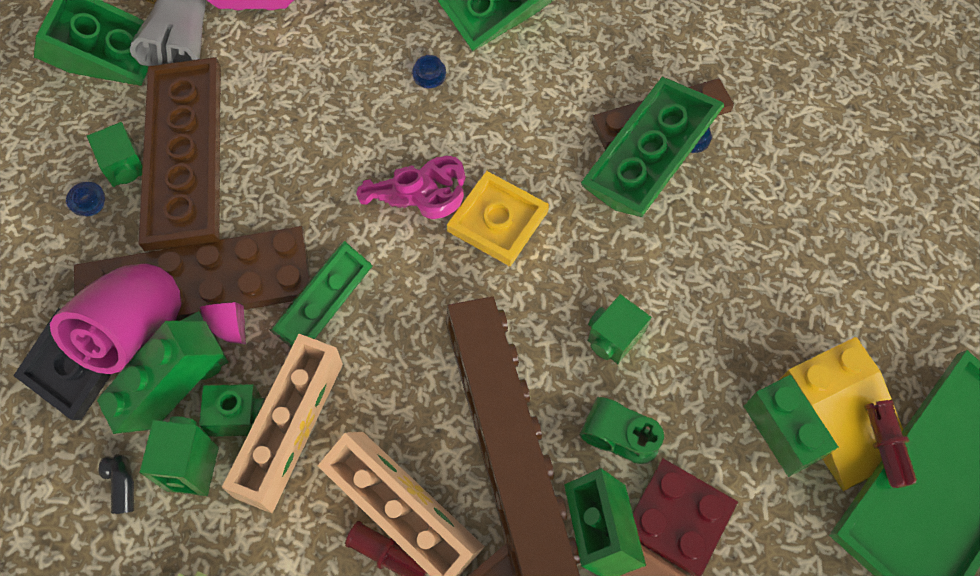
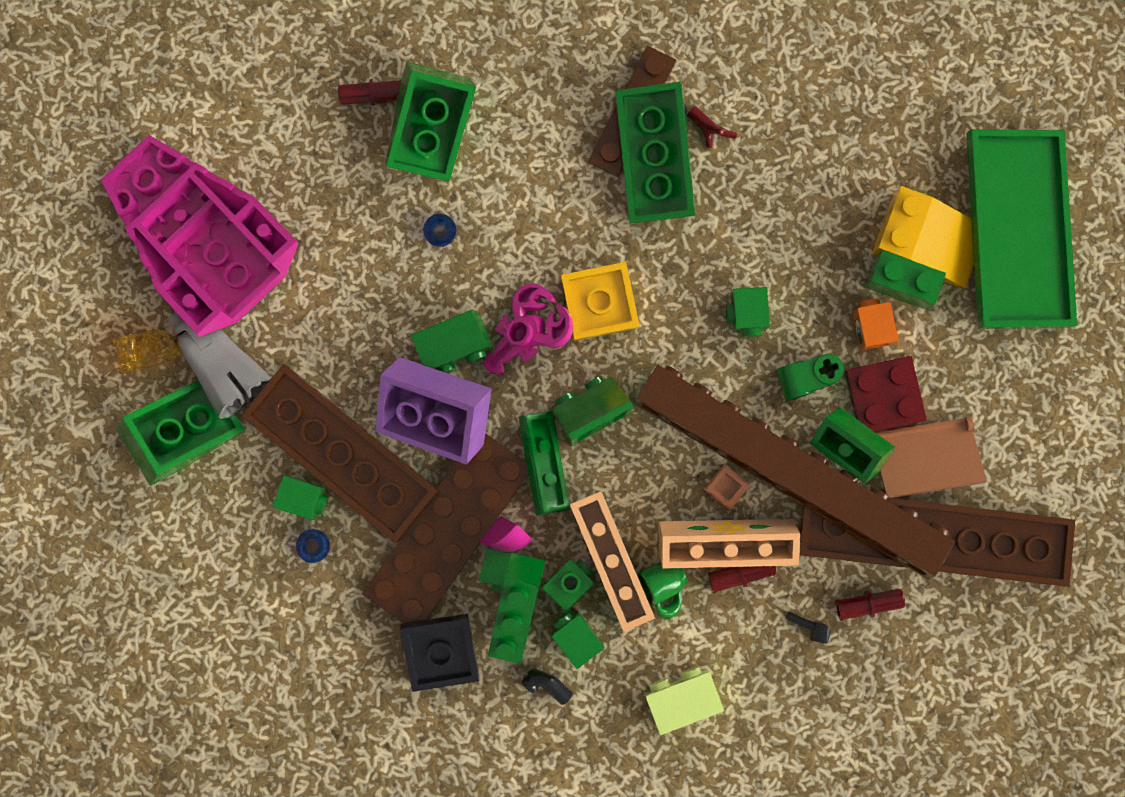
camera: 40 degrees left, 20 degrees up
(115, 316) = (454, 597): dark pink brick -> none
(276, 168) = (432, 410): none -> medium lavender brick
(306, 489) = (662, 584): none -> green piece
(351, 145) = (453, 342): none -> green brick
(397, 287) = (592, 409): none -> green slope
(453, 462) = (726, 487): none -> nougat tile
(717, 171) = (708, 126): none -> dark red bar
(725, 441) = (874, 324): none -> orange brick
(891, 444) = (973, 241): dark red axle -> none

